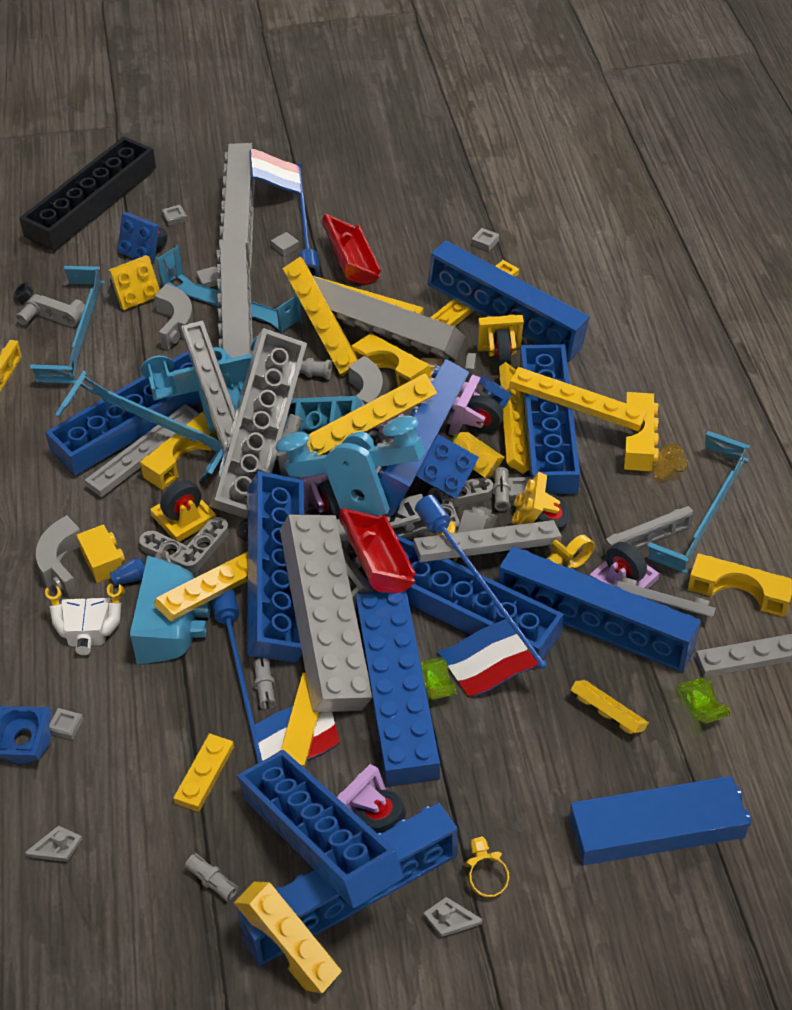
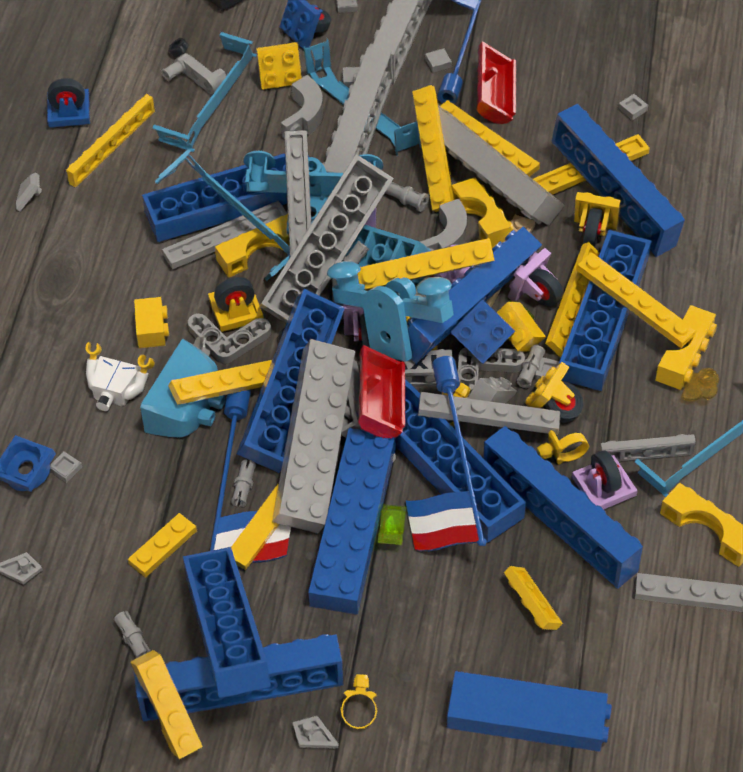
camera: 20 degrees right, 5 degrees up
(52, 549) = (109, 307): light grey arch -> none
(128, 572) = (165, 347): blue cone -> none
(373, 802) = (281, 616): plate -> none
(470, 365) = (555, 238): light grey tile -> none
(495, 391) = (563, 269): blue bracket -> none
(698, 606) = (657, 532): light grey plate -> none
(702, 700) = (620, 619): clear neon green slope -> none

